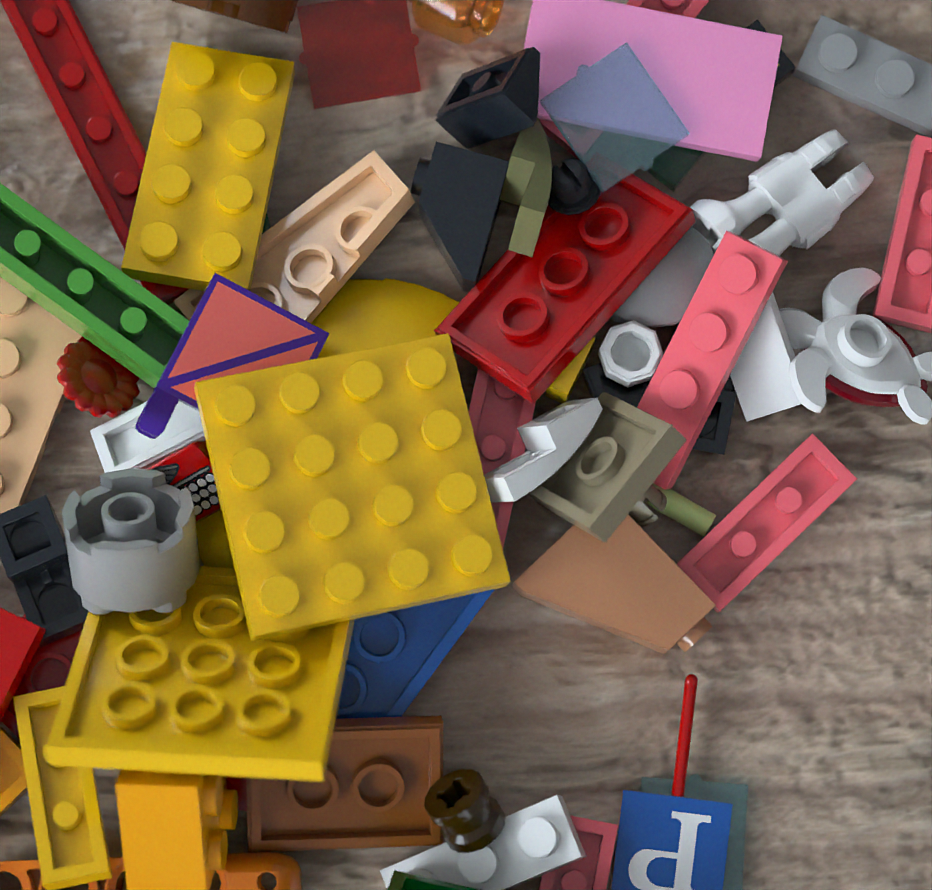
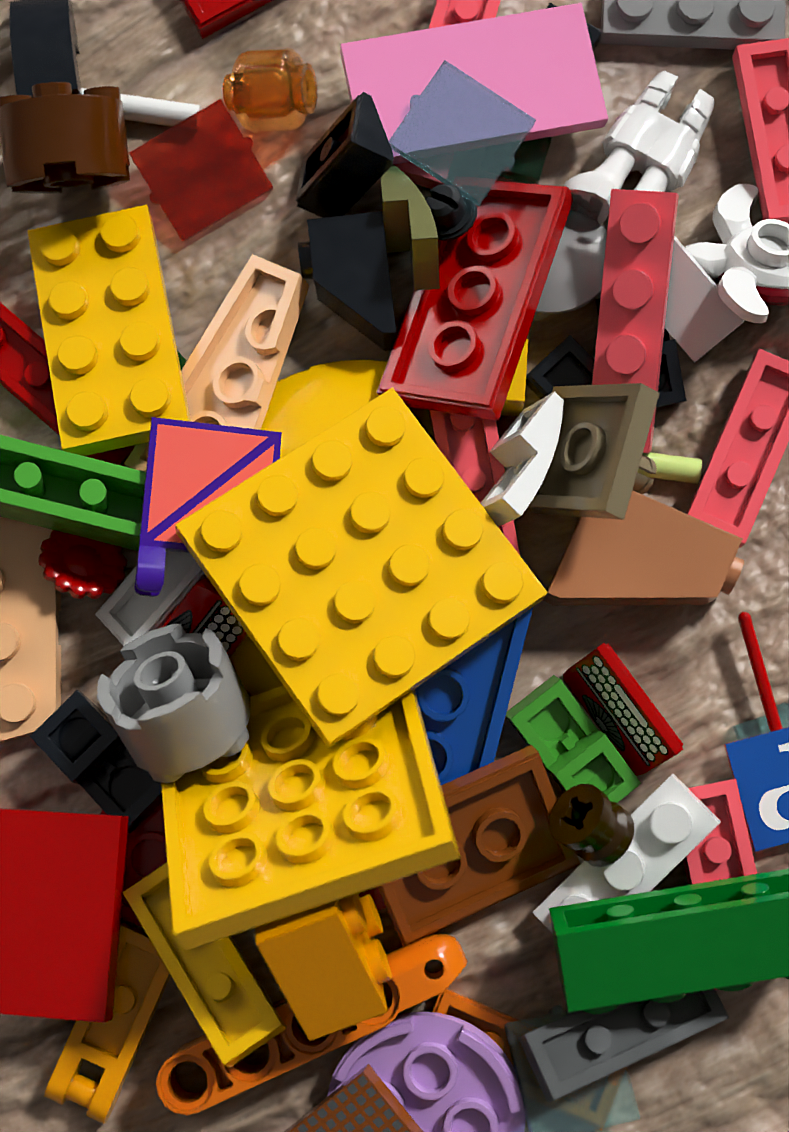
camera: 15 degrees left, 0 degrees up
(481, 729) = (570, 742): none -> bright green slope
(540, 719) = (622, 710): none -> slope
(630, 353) = (565, 342): white tile -> none

